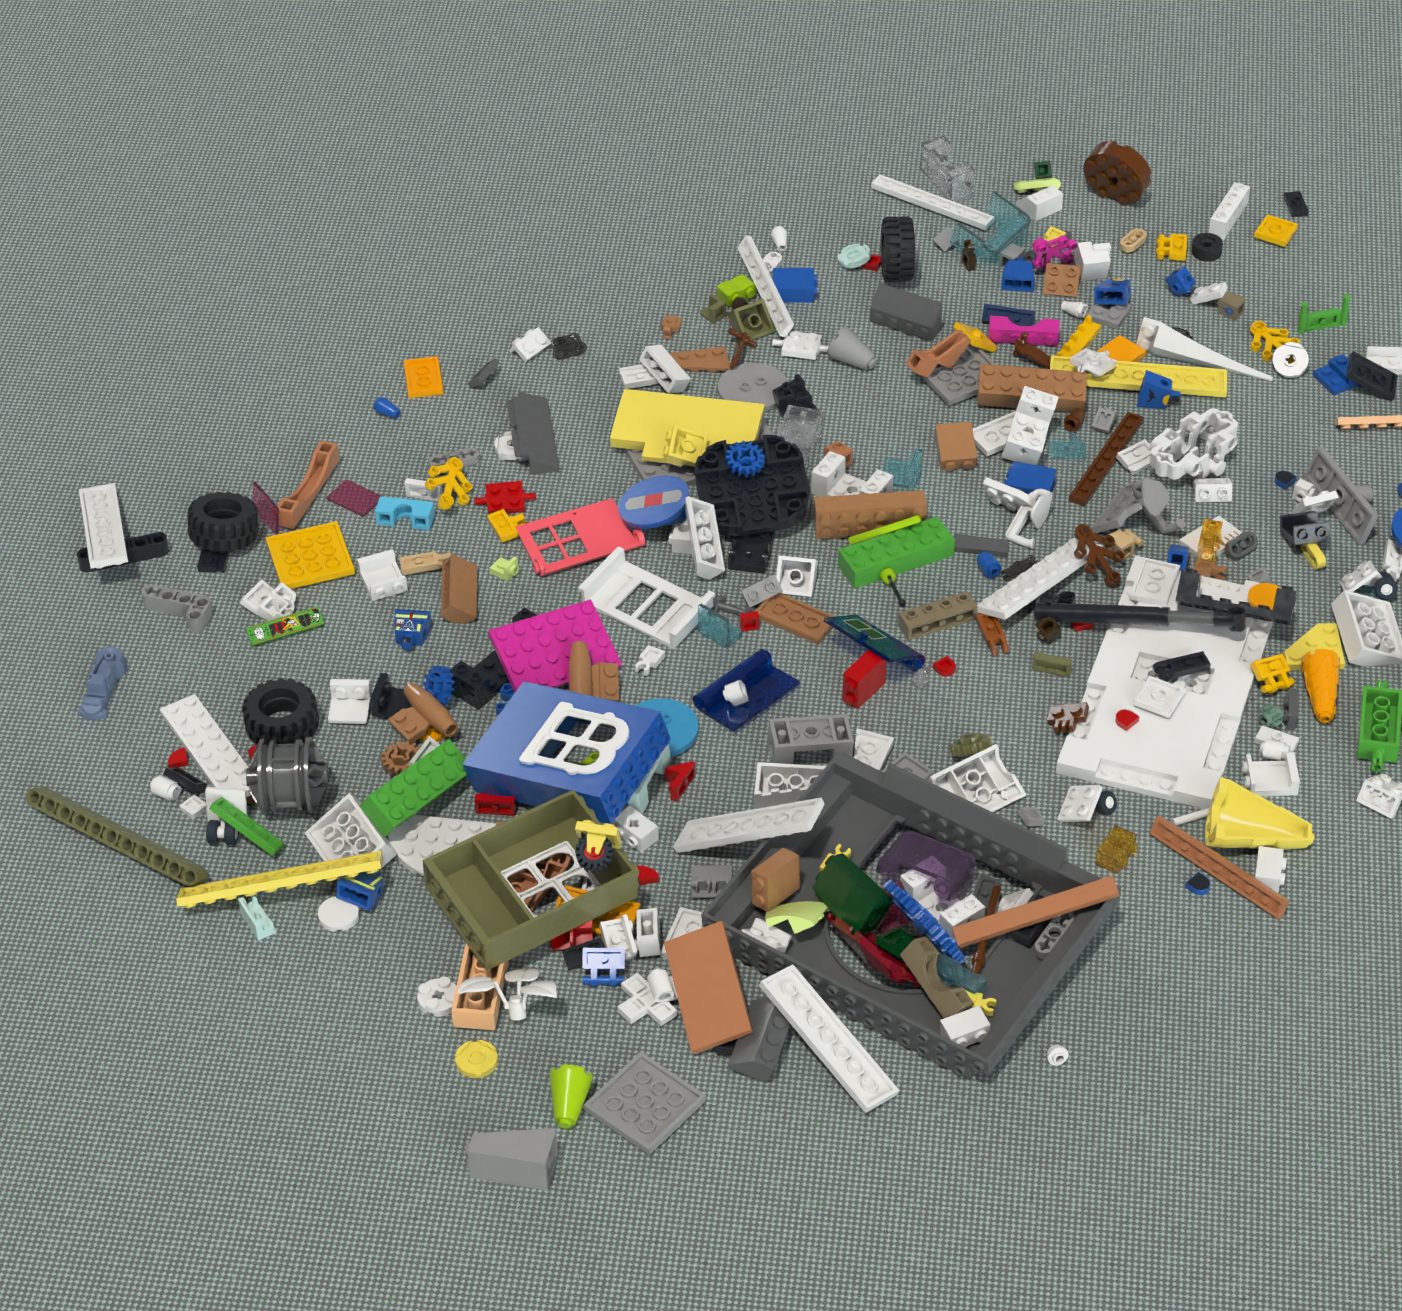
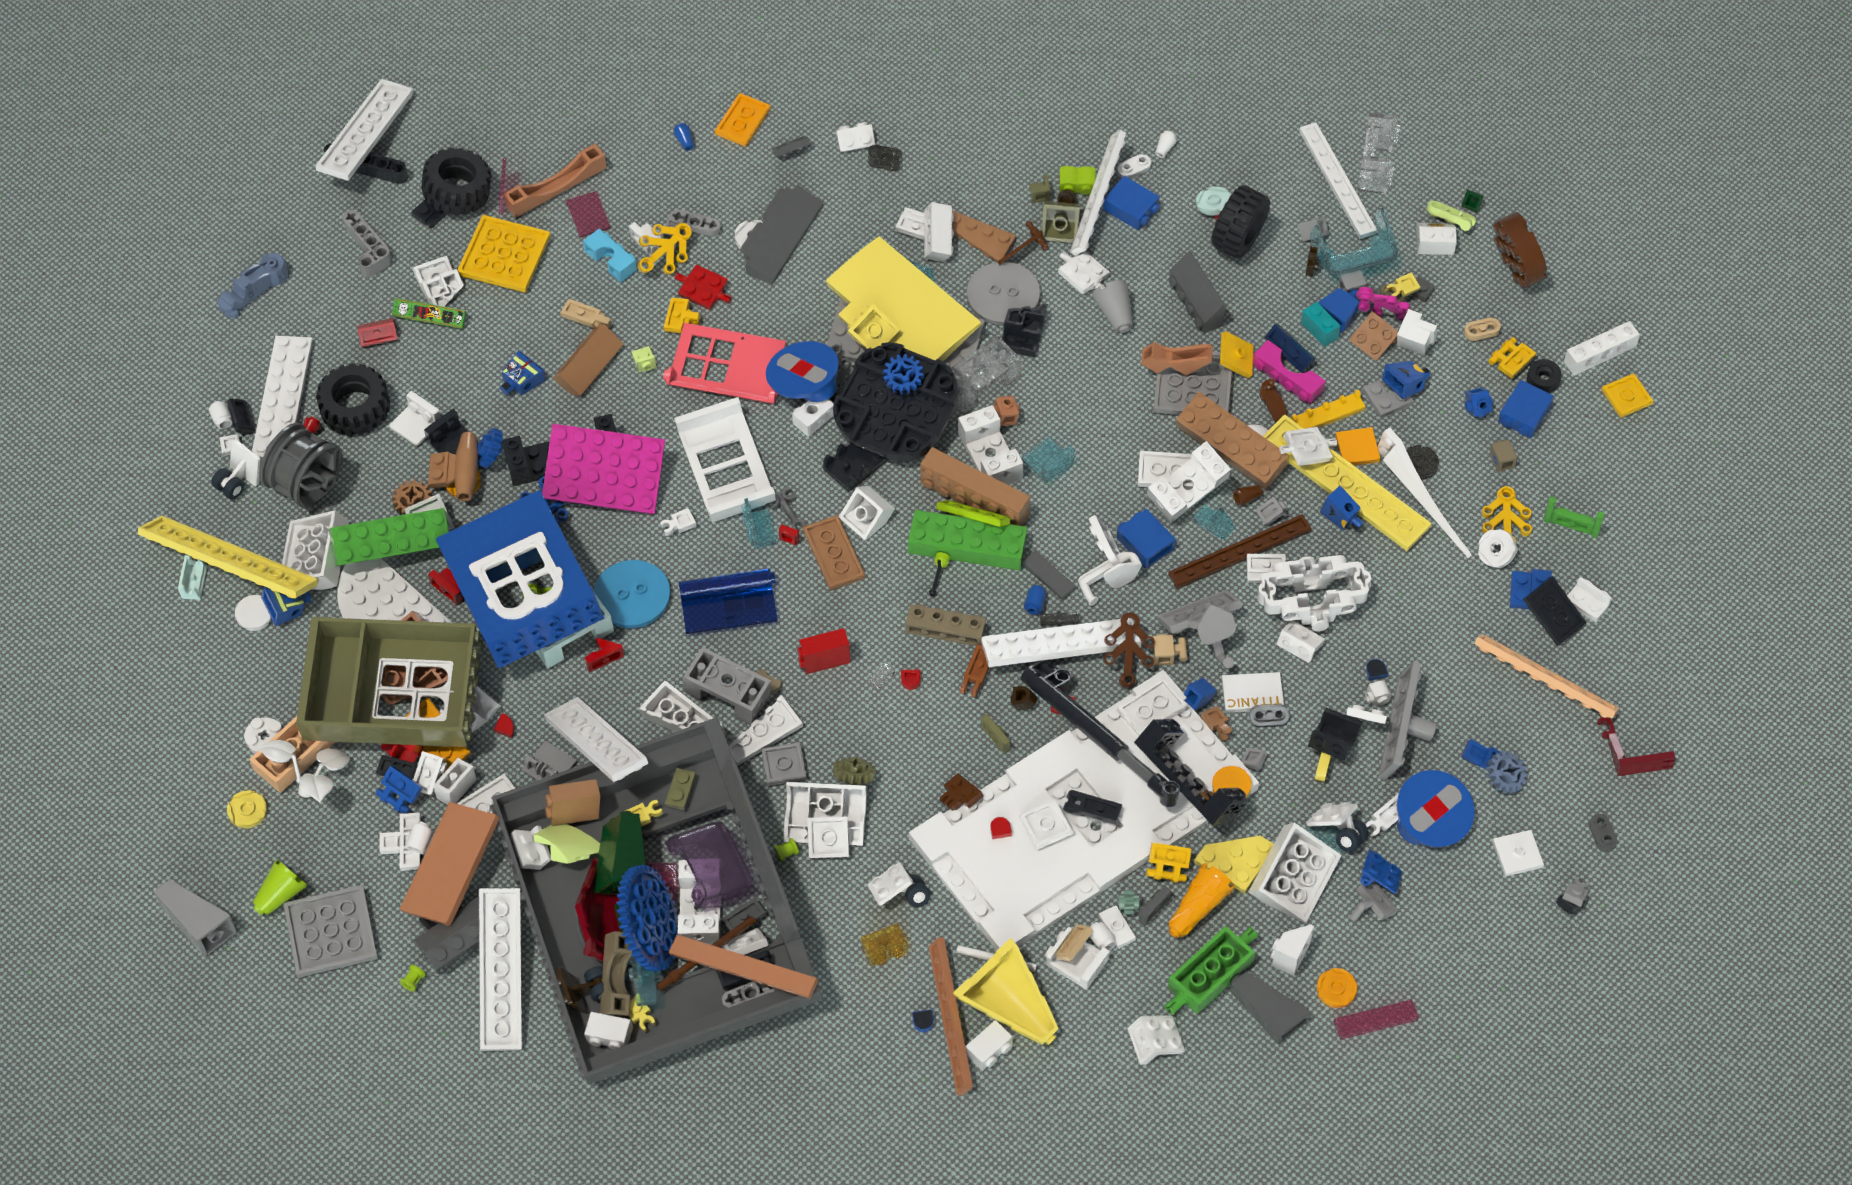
camera: 35 degrees right, 15 degrees up
(117, 836) = (150, 439): olive beam -> none
(178, 758) = (254, 392): red tile -> none
(247, 826) = (244, 491): bright green tile -> none
(251, 661) = (377, 332): none -> panel
(381, 575) = (542, 308): white panel -> none
(594, 680) = (607, 516): medium nougat plate -> none
(596, 845) = (437, 691): plate -> none
(636, 829) = (529, 669): white brick -> none
(671, 324) = (992, 184): medium nougat plate -> none
(704, 538) = (809, 431): white slope -> none
(736, 693) = (711, 600): white plate -> none
(753, 1096) = (412, 978): none -> lime bush
(761, 591) = (822, 511): light grey hinge -> none
(849, 828) = (680, 789): none -> olive plate
(877, 641) = (861, 620): door -> none
(914, 1002) = (573, 992): none -> dark brown plate
(955, 446) = (1113, 461): medium nougat brick -> none
(998, 797) = (828, 837): none -> white plate
(1015, 290) = (1320, 324): none -> teal brick
(1031, 816) = (846, 869): light grey tile -> none
(1057, 1055) = (667, 1099): white plate -> none
(1077, 309) = (1359, 376): white cone -> none
(1208, 293) = (1492, 430): white plate -> none
(1209, 540) = (1238, 695): clear yellow brick -> none
(1216, 268) = (1525, 409): none -> blue brick
(1261, 763) = (1073, 942): none -> tan plate
(1296, 204) = (1677, 375): black plate -> none

